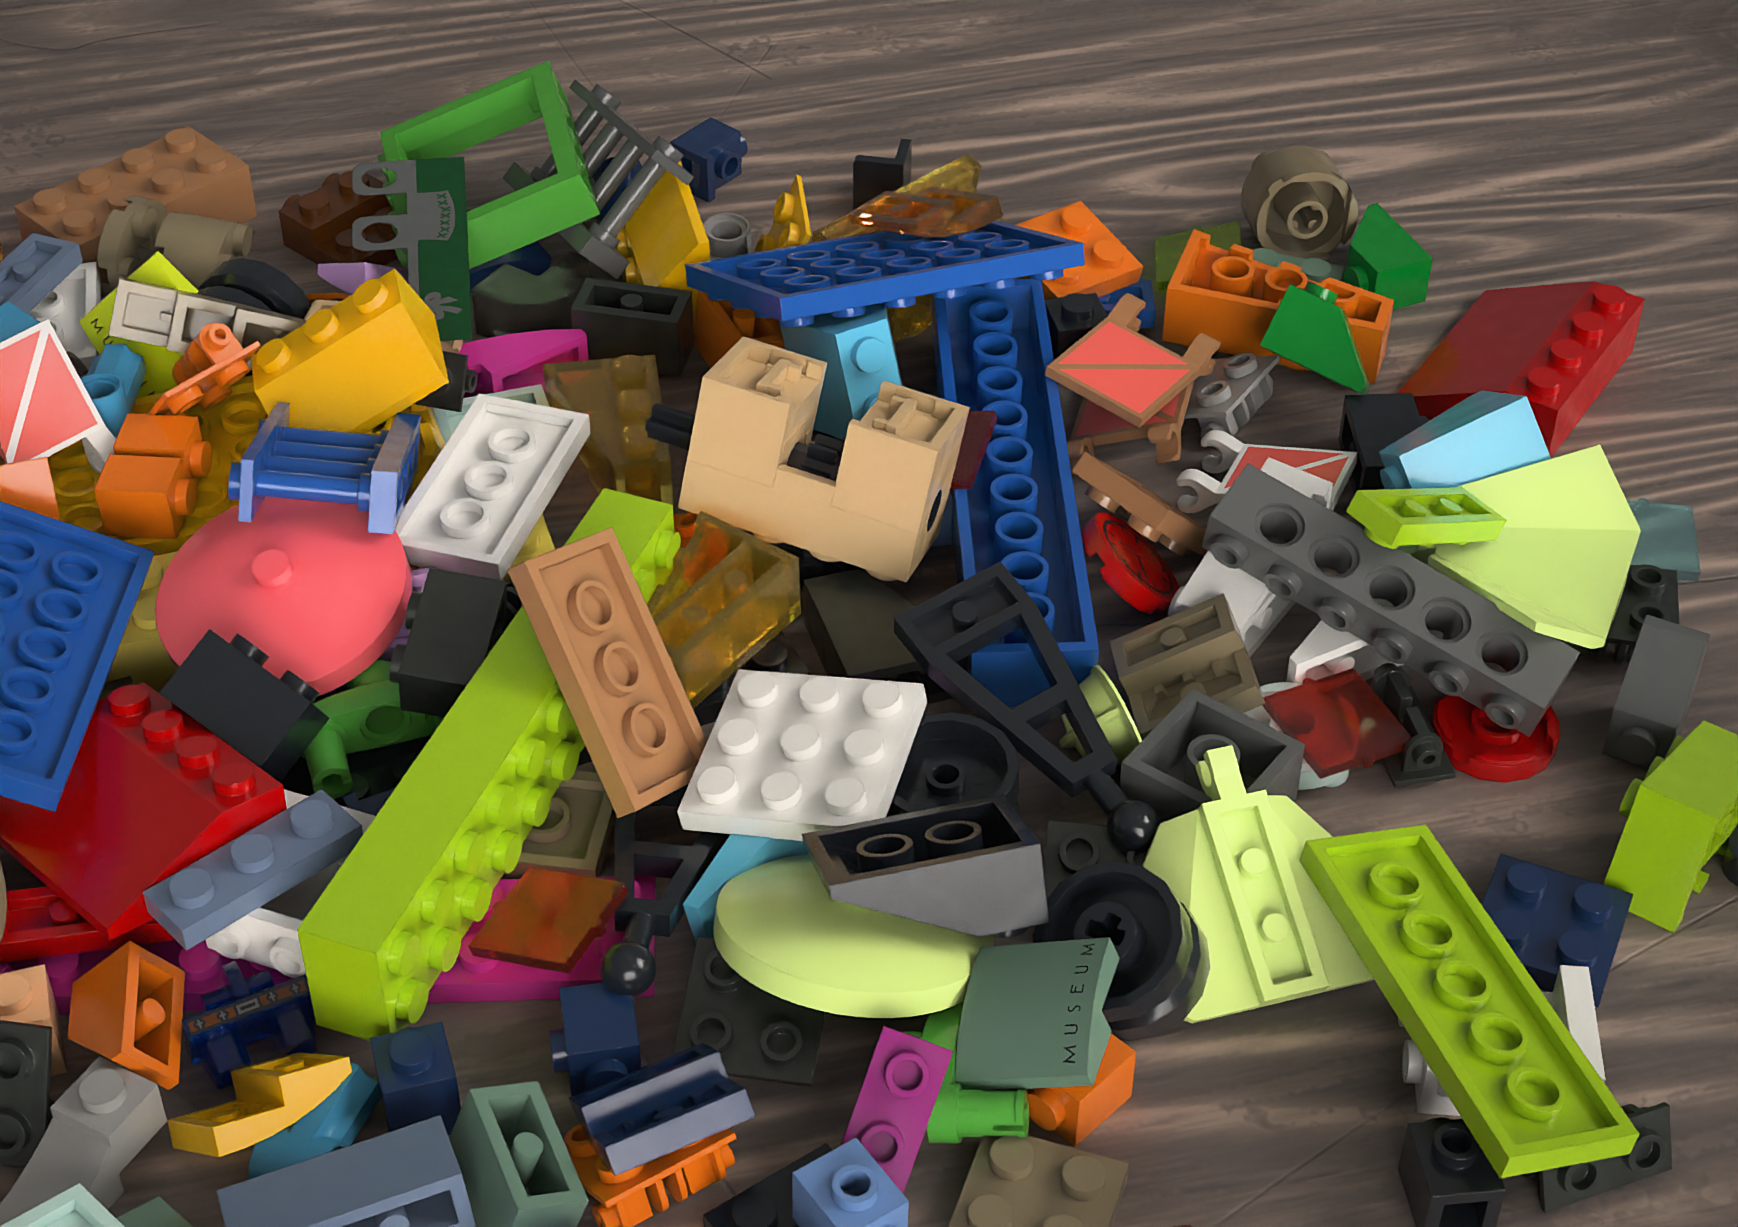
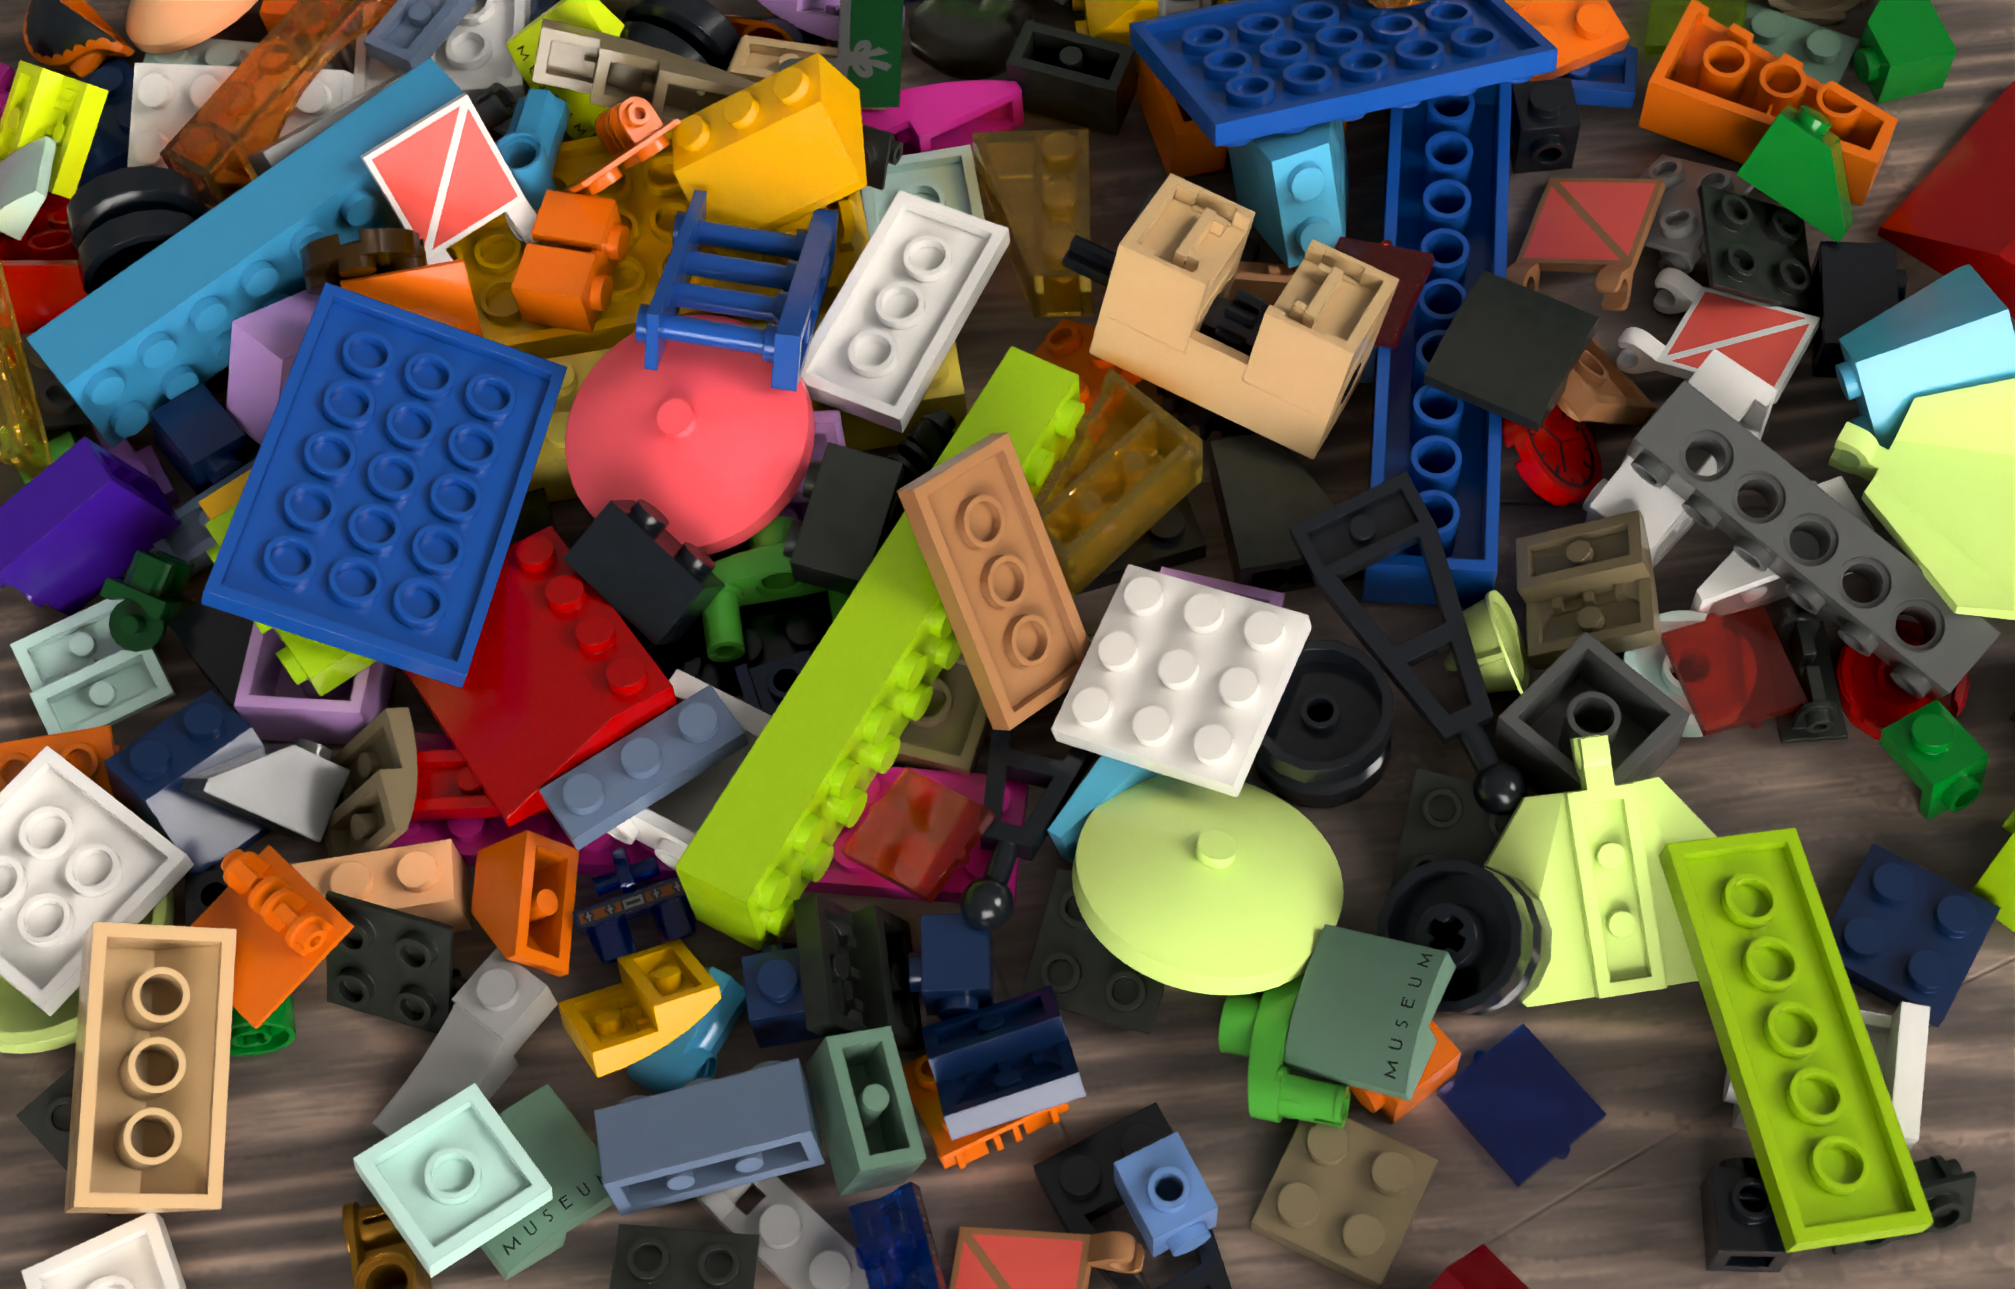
camera: 15 degrees right, 20 degrees up
(491, 1039) = (856, 971): none -> pearl dark grey slope
(897, 1100) = (1220, 1088): magenta hinge -> none
(944, 866) = (1286, 843): black slope -> none
(1080, 475) = (1510, 350): none -> pearl dark grey slope
(1127, 369) = (1585, 193): flag -> none
(1203, 1113) = (1521, 1105): none -> clear blue piece
(1288, 406) = (1756, 250): none -> pearl dark grey hinge
(1424, 516) = (1867, 454): lime plate -> none
(1547, 775) = (1937, 758): none -> green bracket

